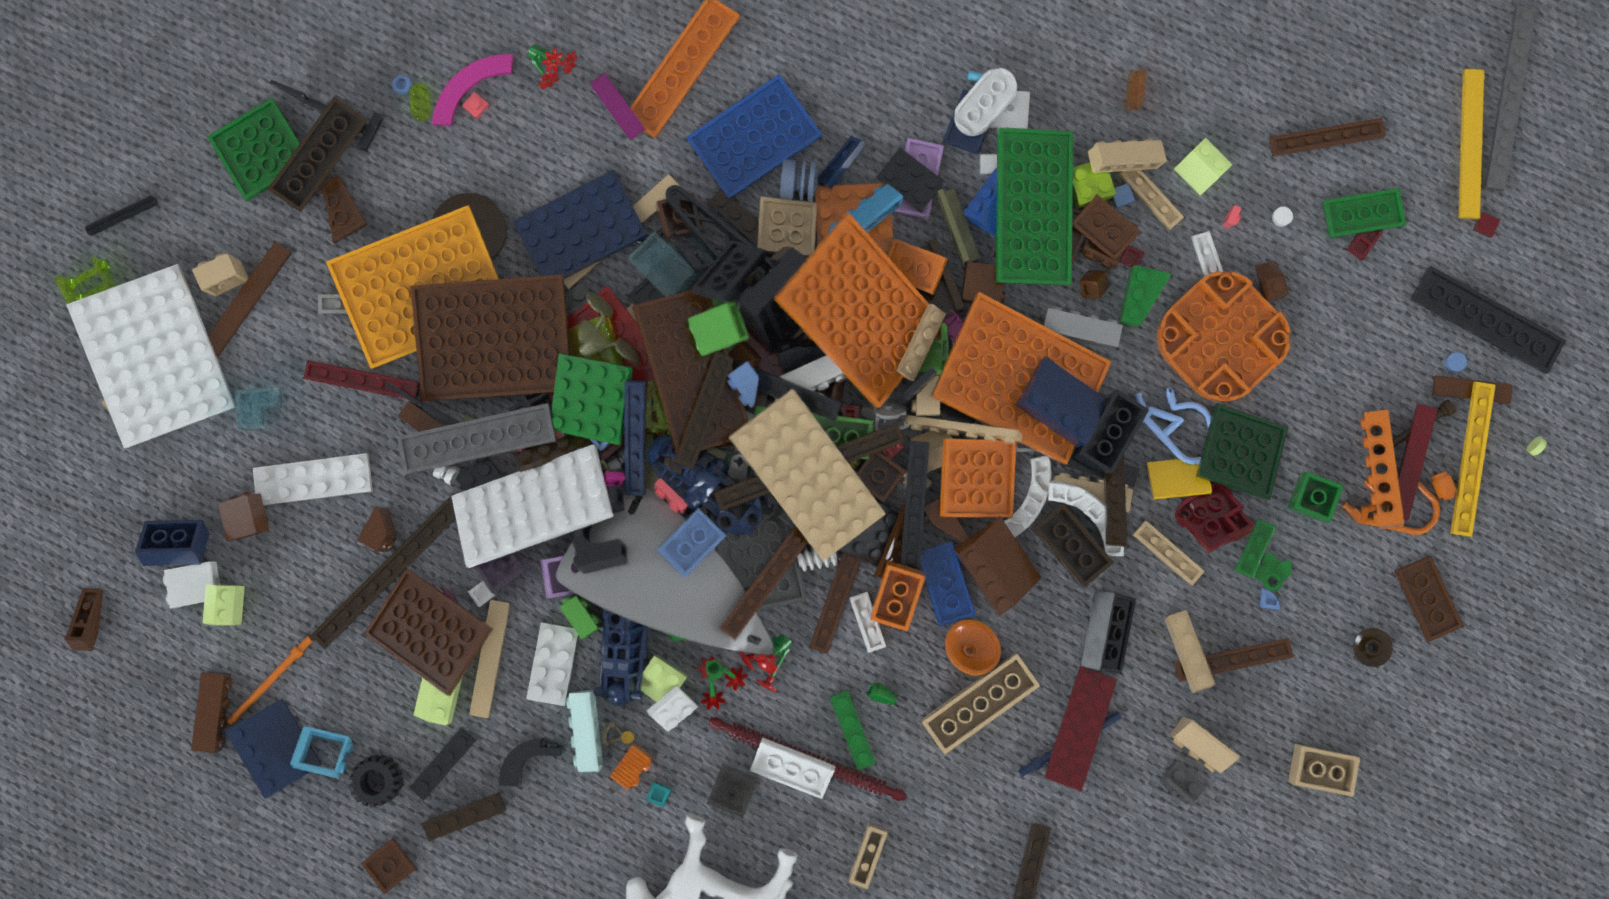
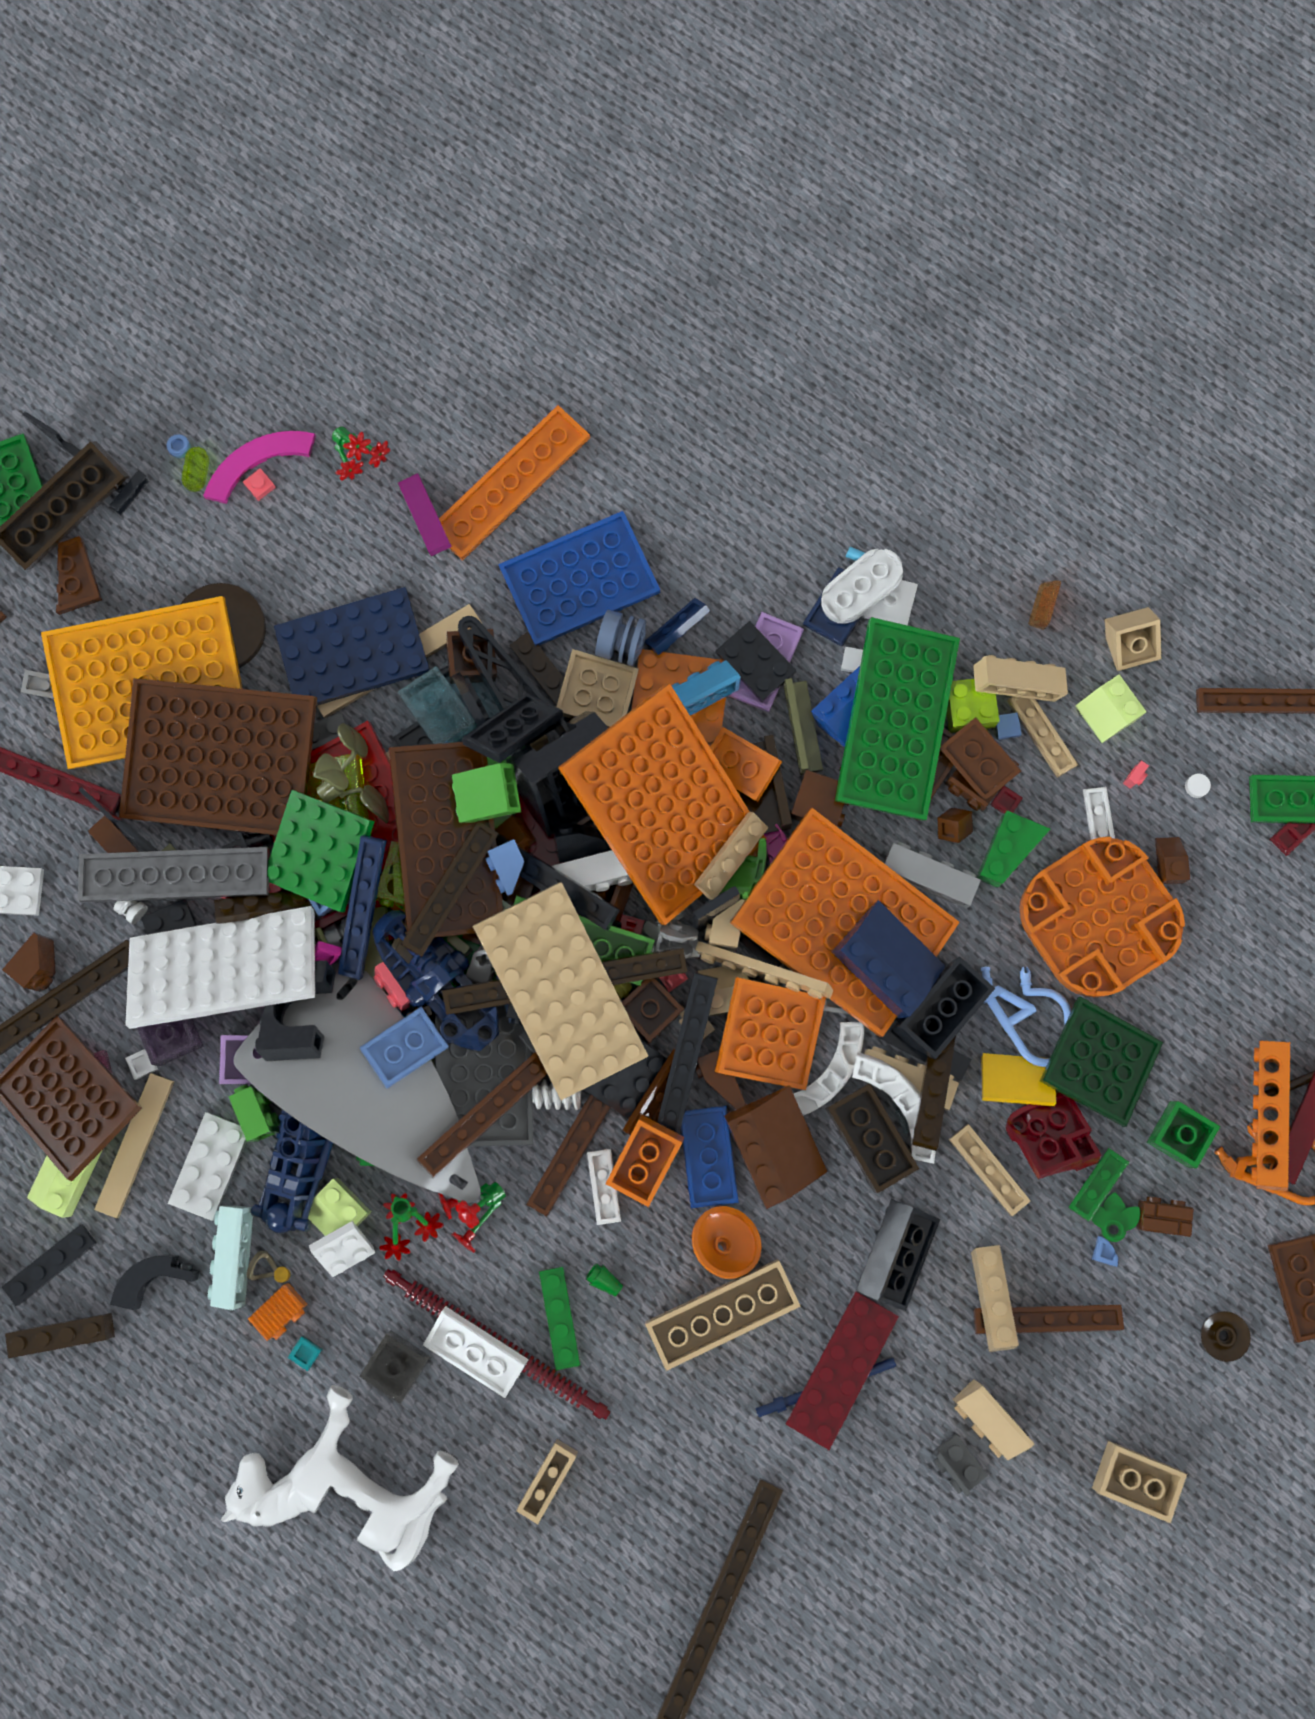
camera: 10 degrees right, 5 degrees down
(1212, 105) = (1134, 638): none -> tan slope
(1311, 565) = (1165, 1218): none -> reddish brown brick

